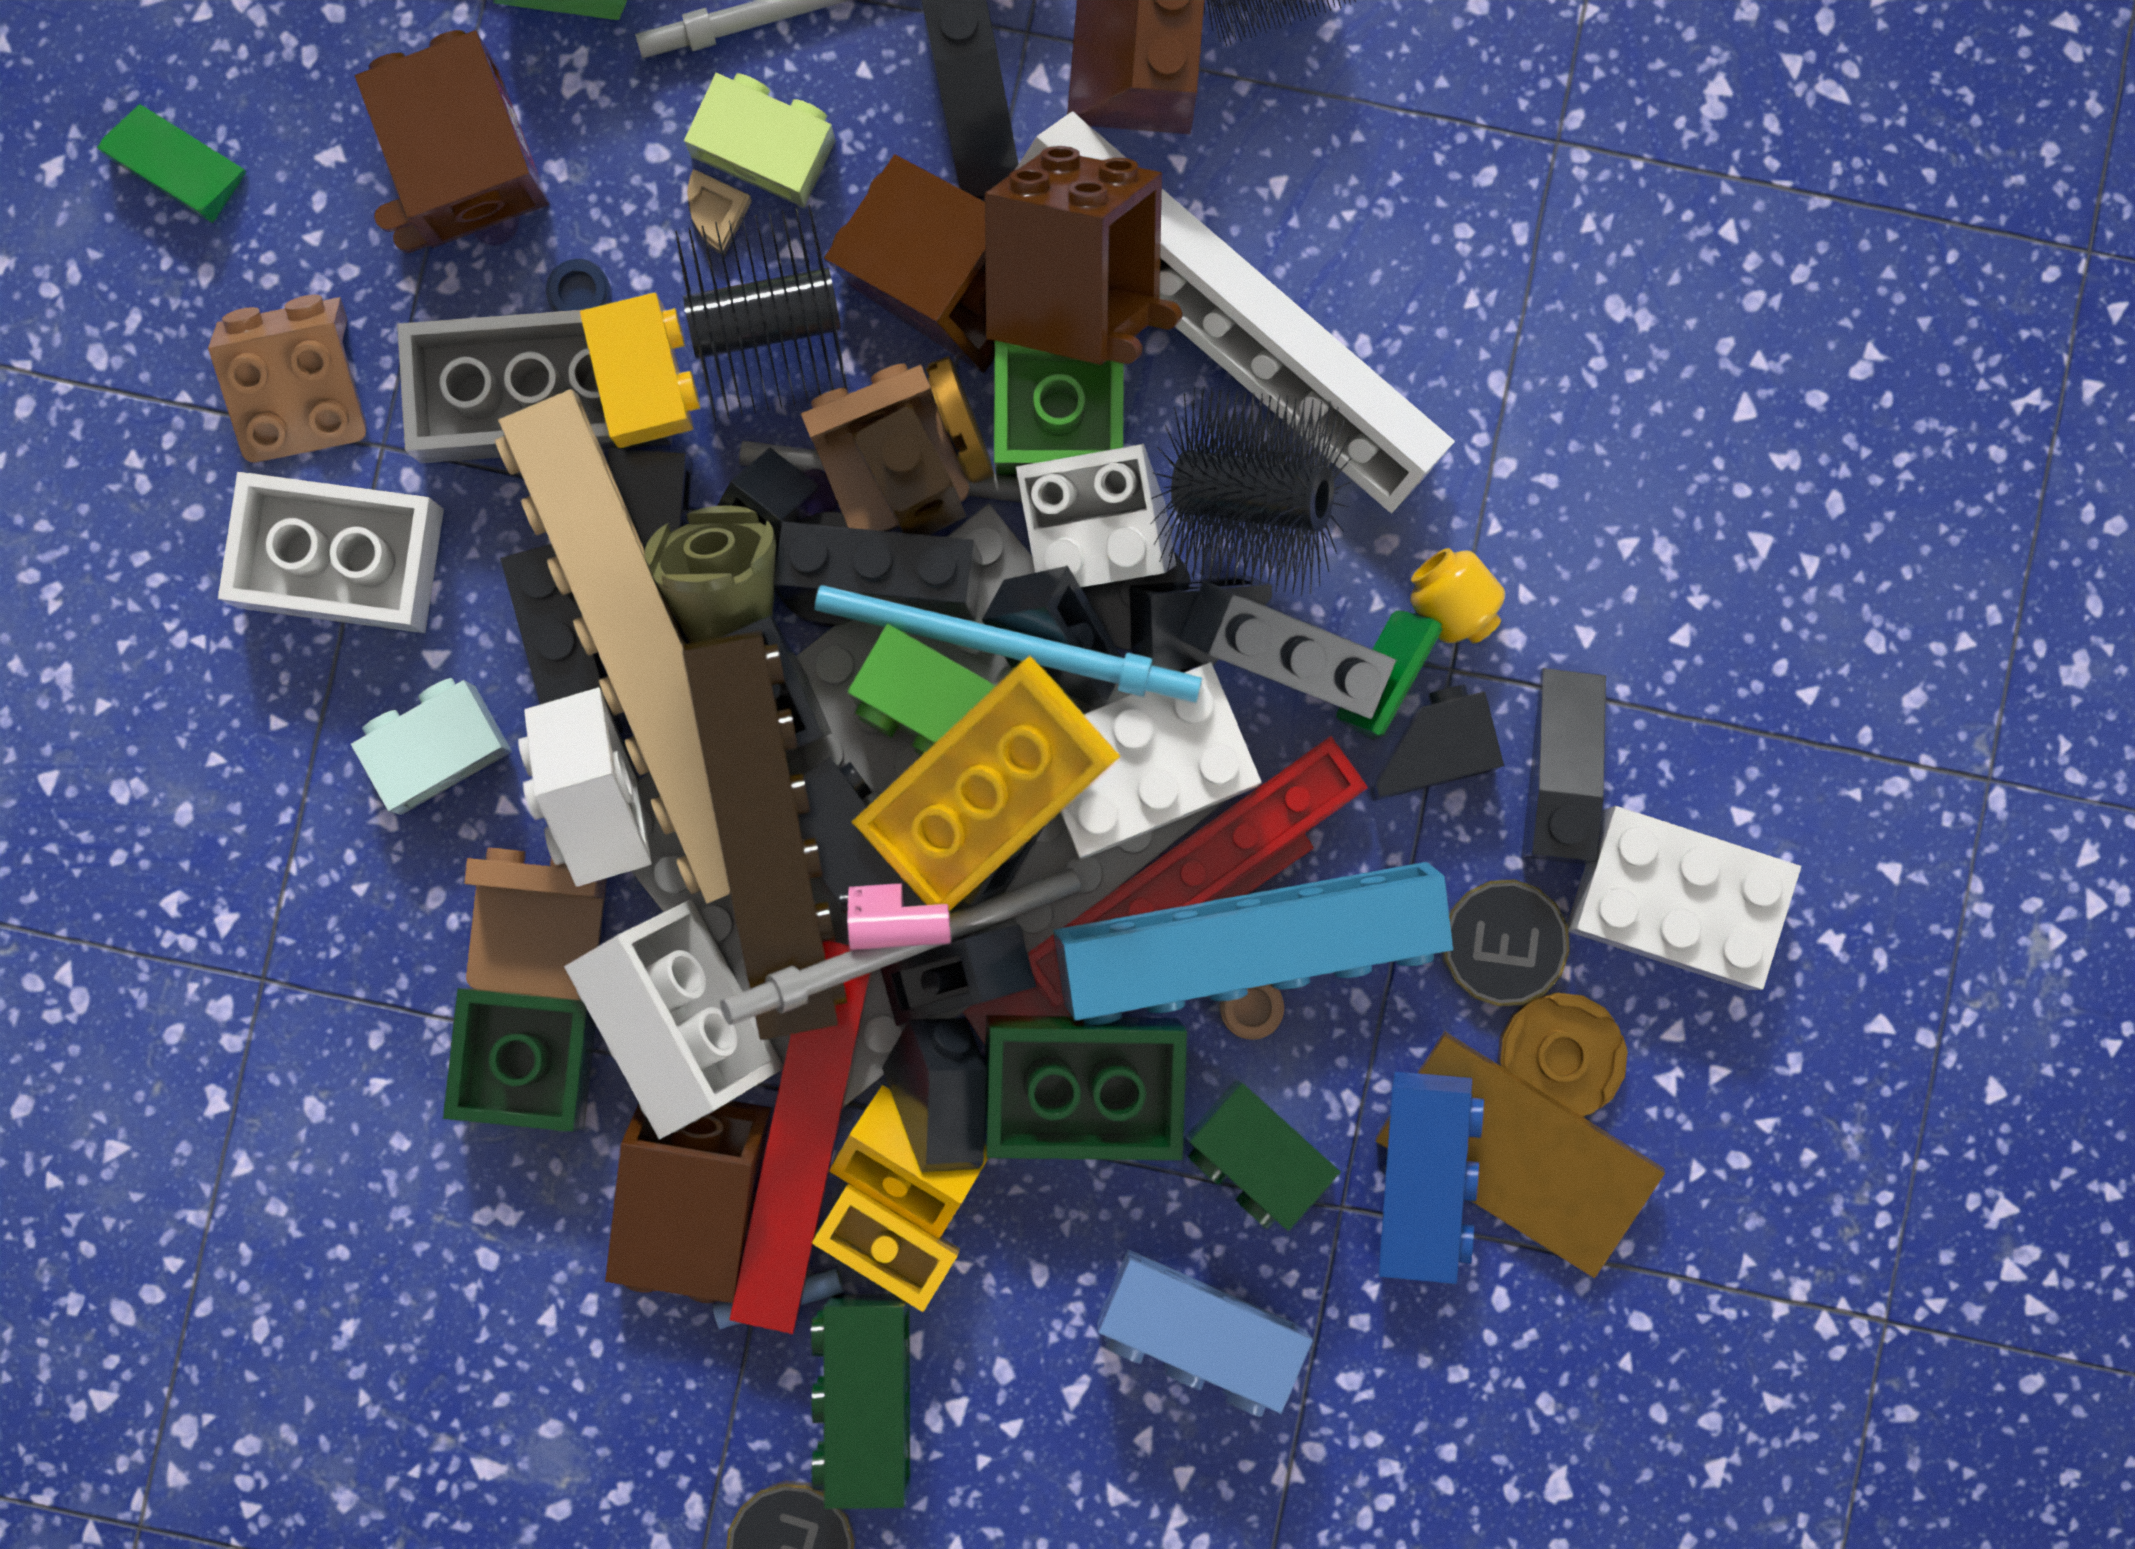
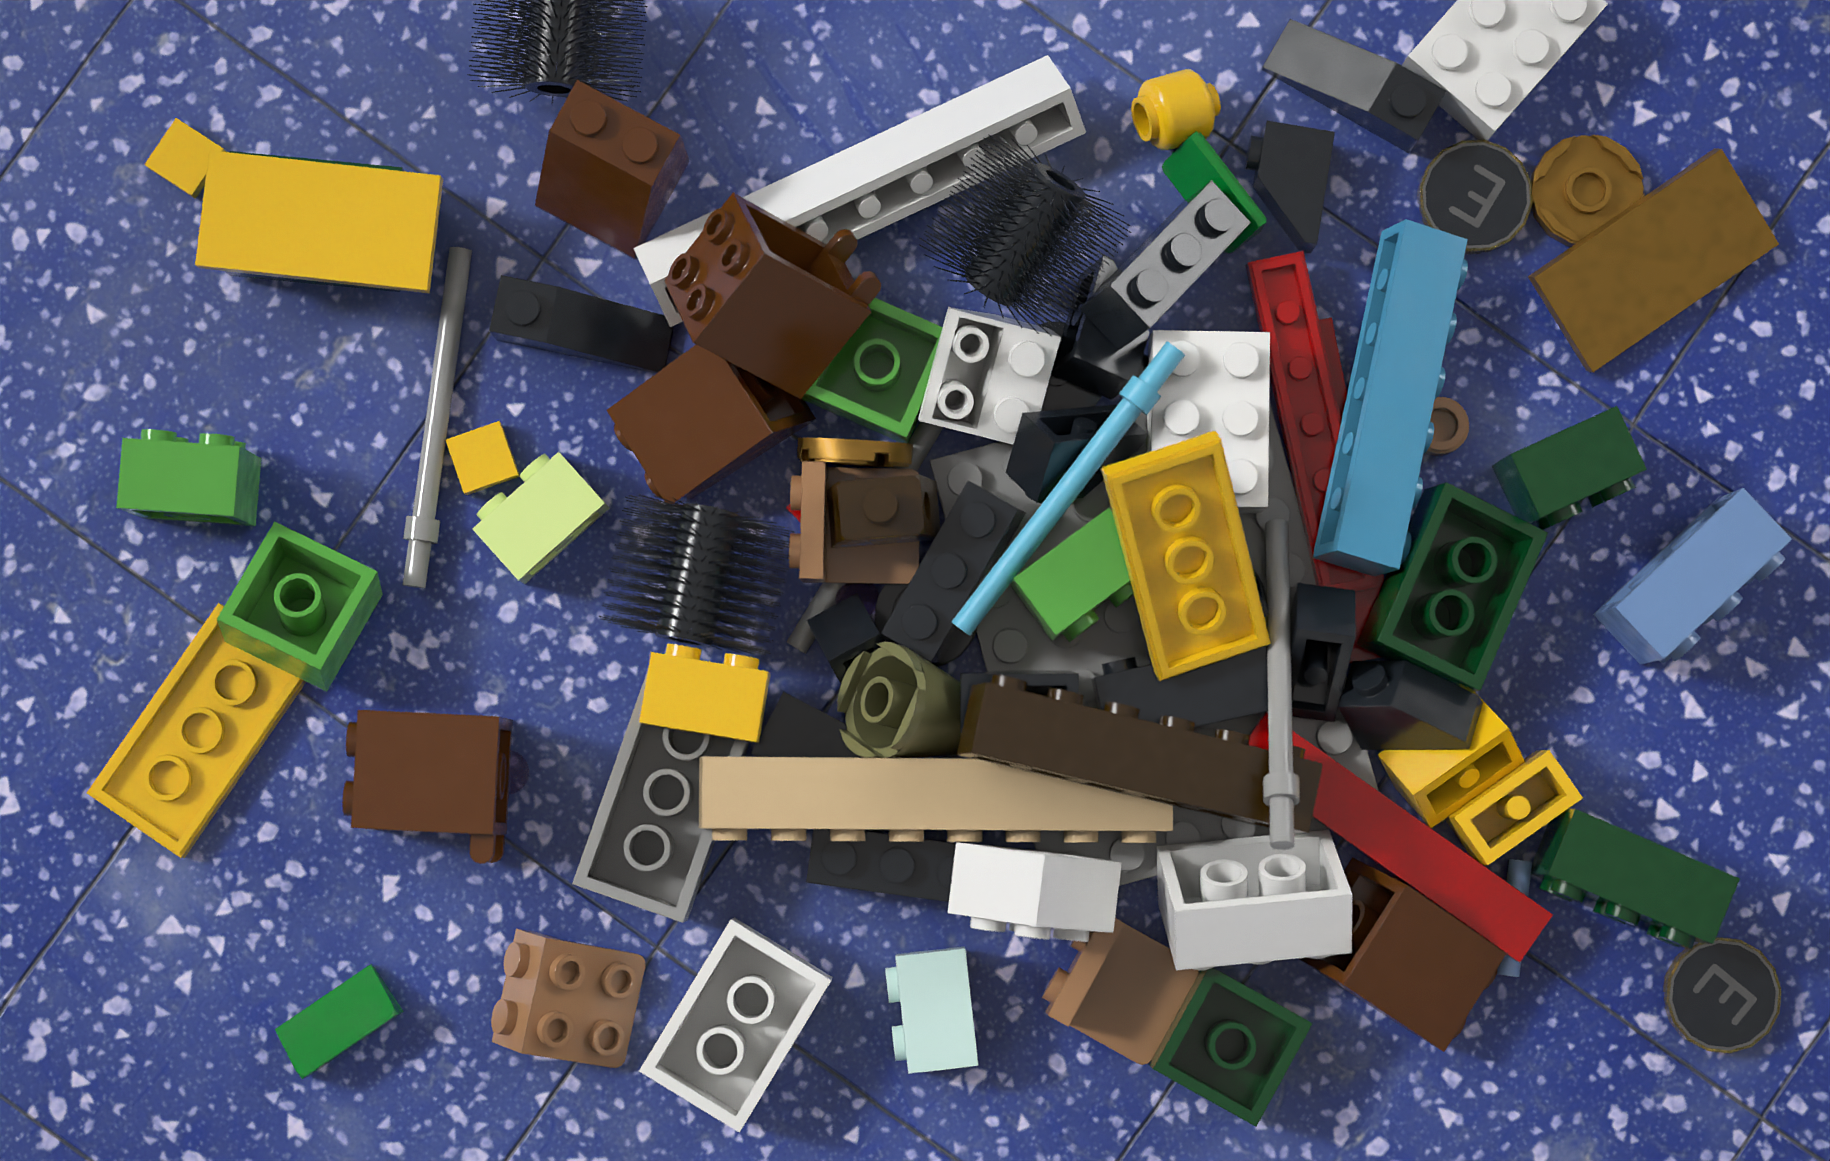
camera: 65 degrees left, 0 degrees up
(577, 286) = (599, 725): dark blue tile -> none
(716, 202) = (580, 582): tan tile -> none
(798, 58) = (482, 458): none -> yellow tile
(882, 921) = (1256, 689): bright pink piece -> none
(1429, 1177) = (1644, 340): blue brick -> none

